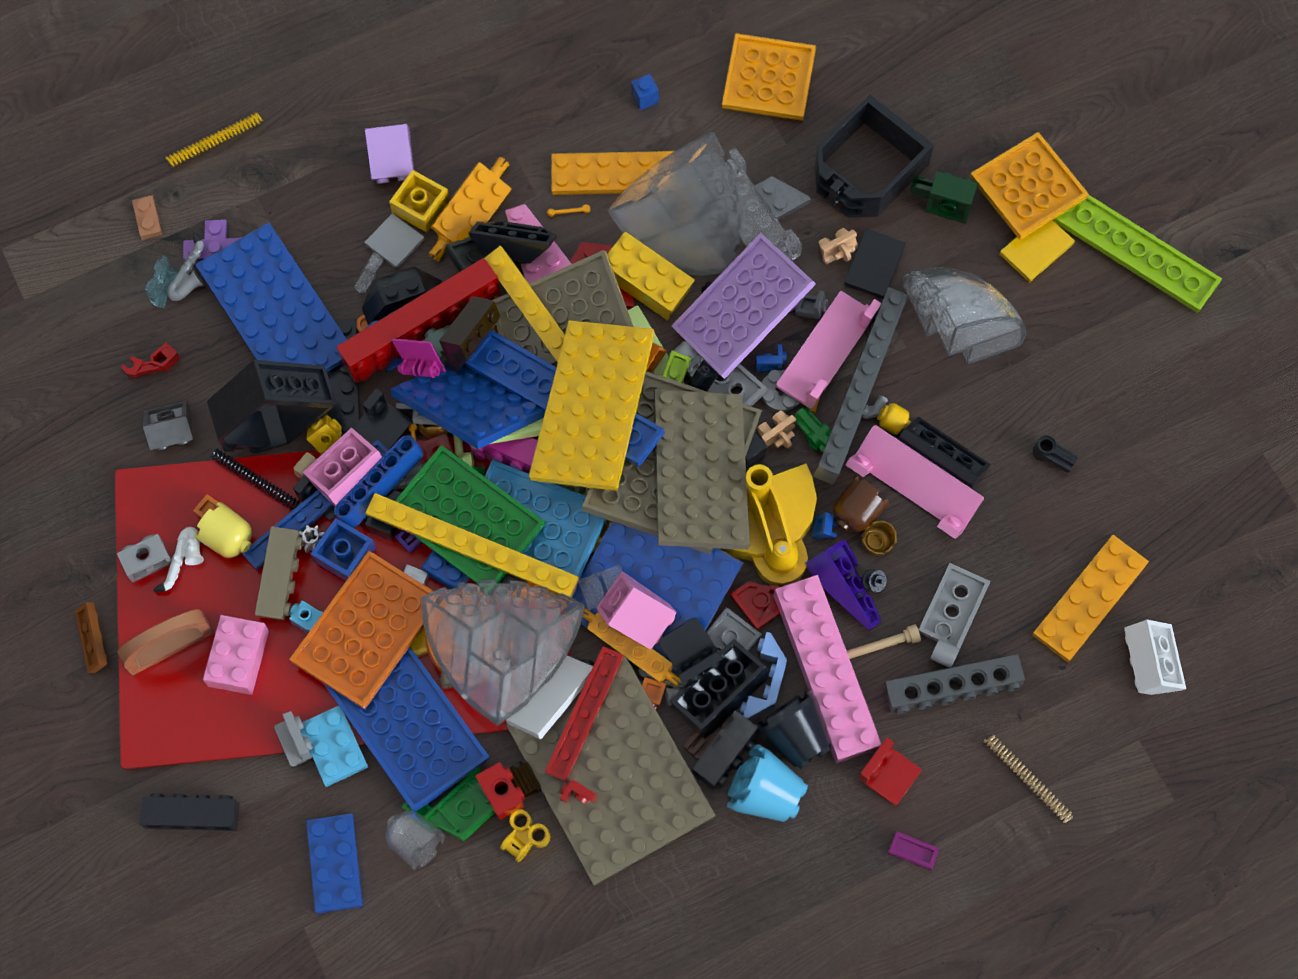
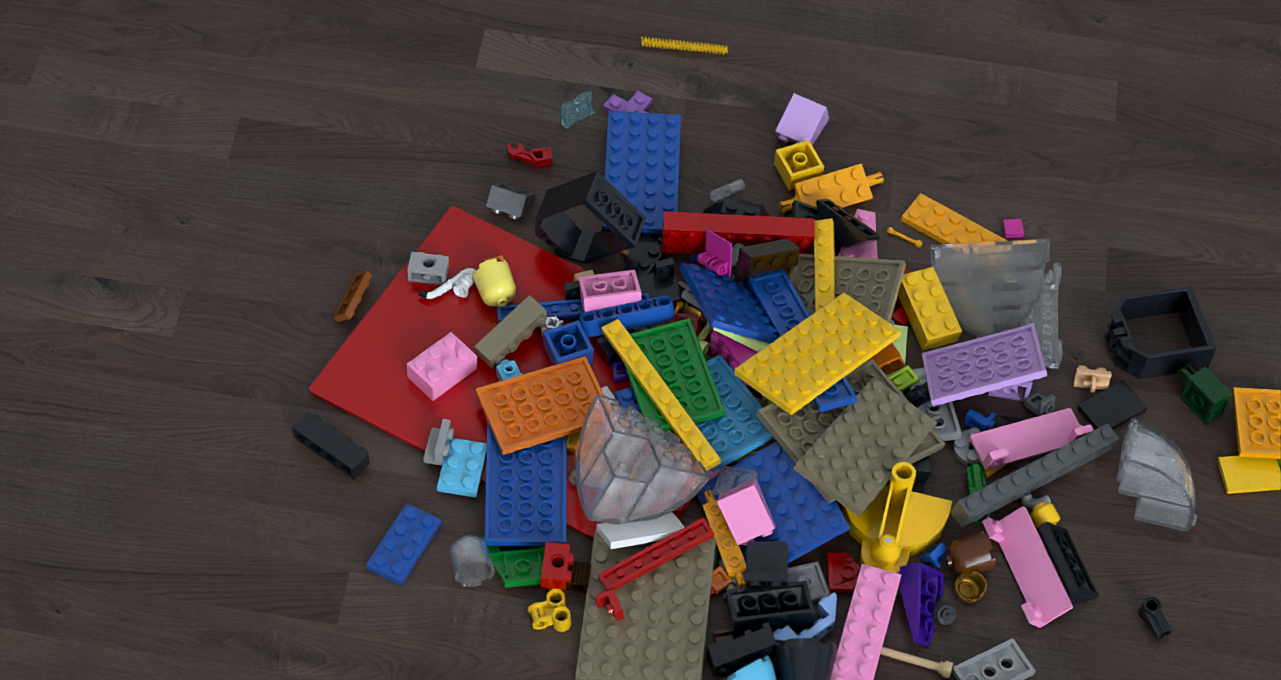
camera: 30 degrees right, 15 degrees down
(147, 217) = (599, 66): nougat plate -> none
(164, 640) = (400, 331): nougat window -> none
(183, 282) = (597, 117): light grey piece -> none
(231, 462) = (539, 269): black piece -> none
(324, 433) = (613, 264): yellow brick -> none
(394, 241) = (761, 181): light grey tile -> none
(645, 91) = (1021, 192): blue brick -> none
(661, 134) = (1013, 228): none -> dark pink tile
(769, 77) = (1125, 238): light orange plate -> none
(781, 197) = (1073, 322): flat silver wing -> none
(781, 431) = (948, 472): light nougat hips -> none

